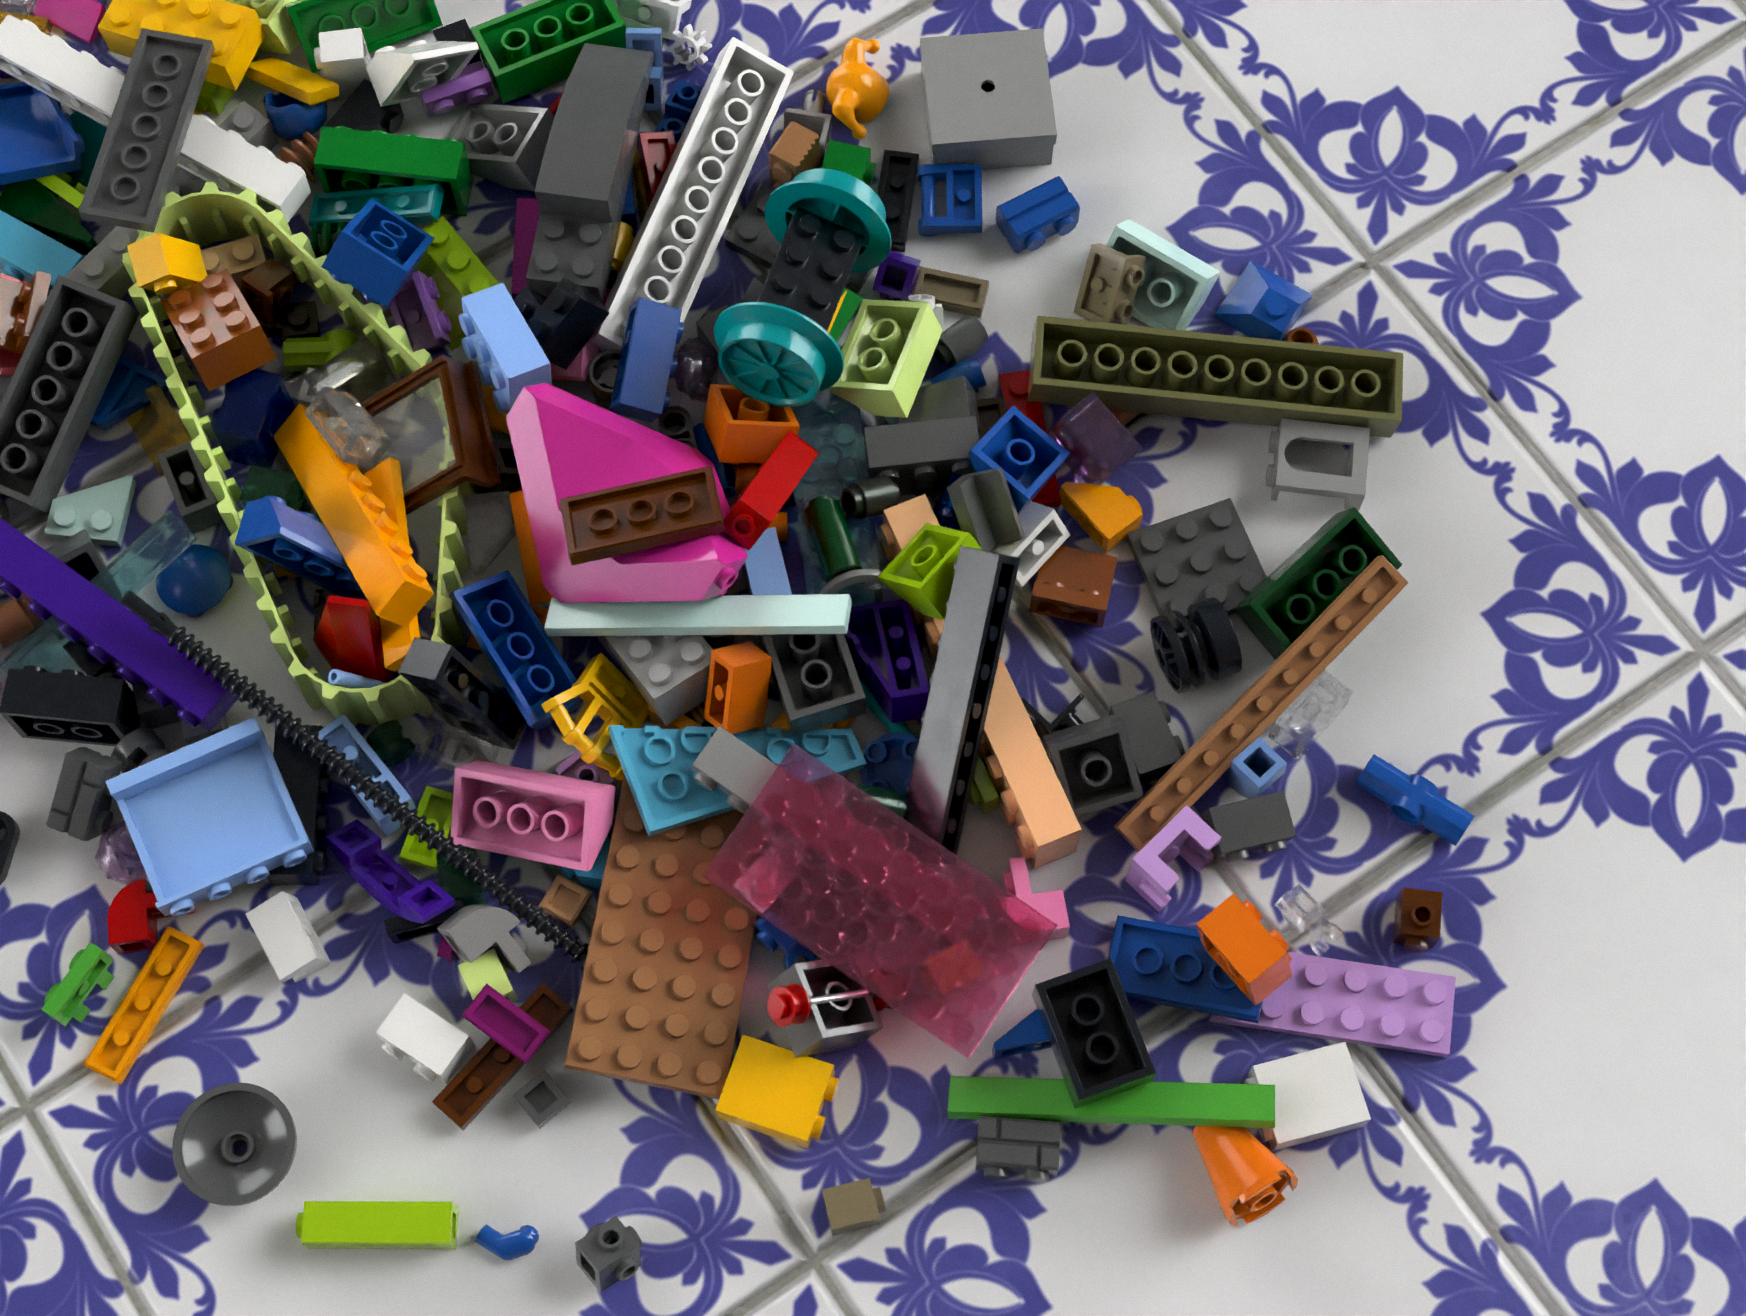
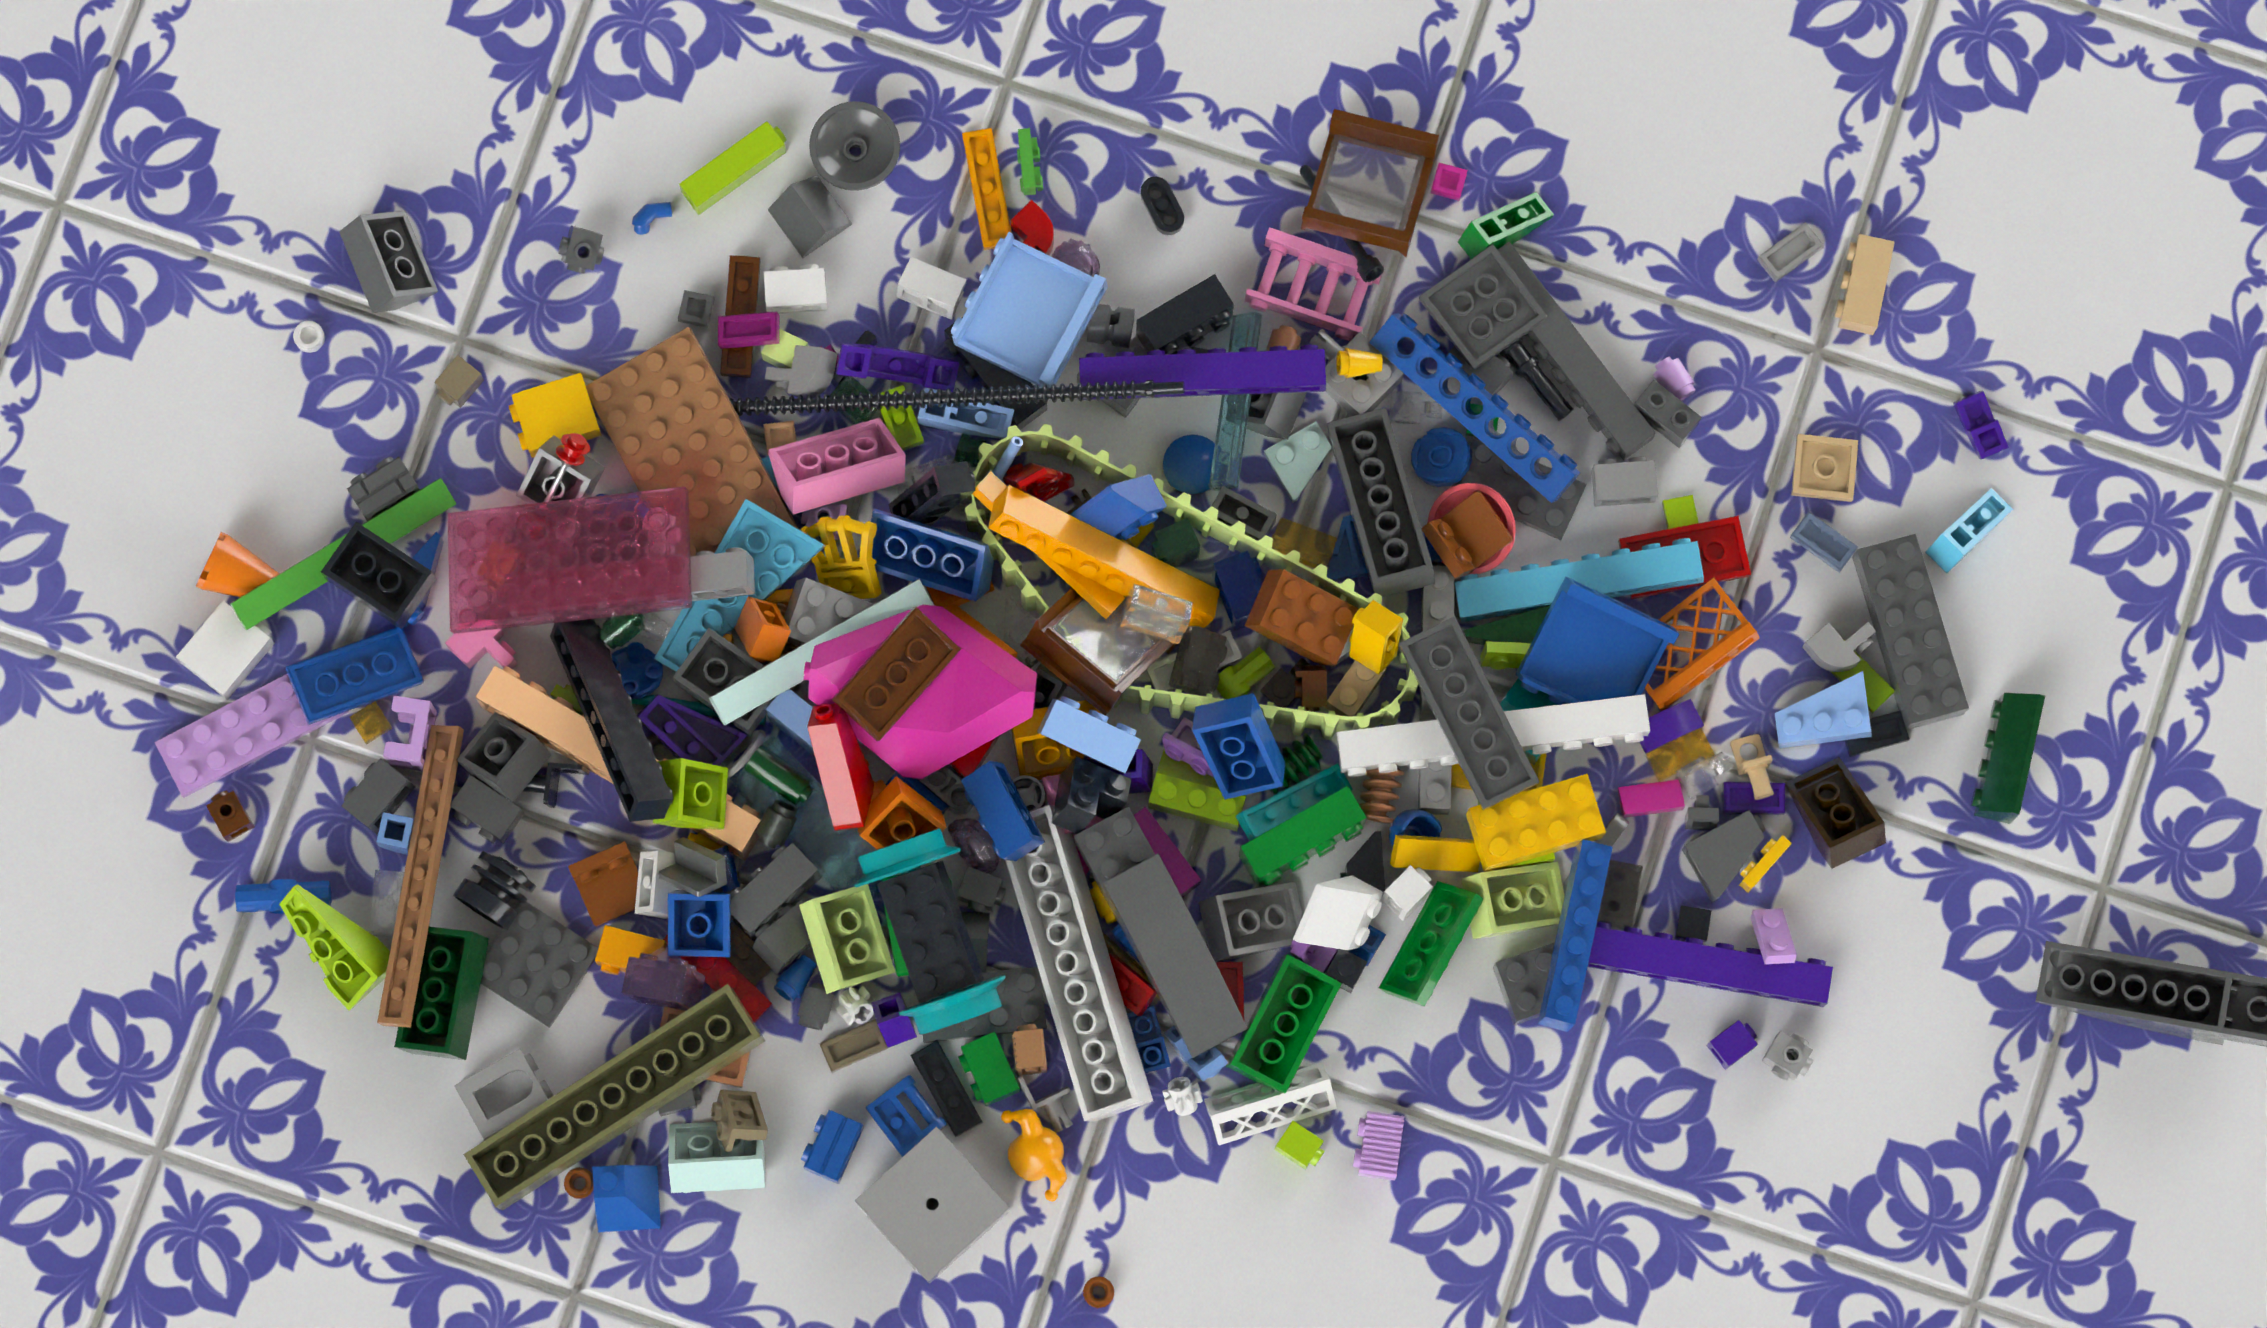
camera: 140 degrees right, 10 degrees up
(82, 795) = (1128, 275): dark grey brick -> none
(346, 1113) = (808, 215): none -> dark grey slope
(1197, 906) = (370, 722): none -> clear yellow plate
(1245, 948) = (318, 692): orange brick -> none
(1306, 913) = (304, 766): clear plate -> none
(1388, 692) = (345, 951): none -> lime wedge

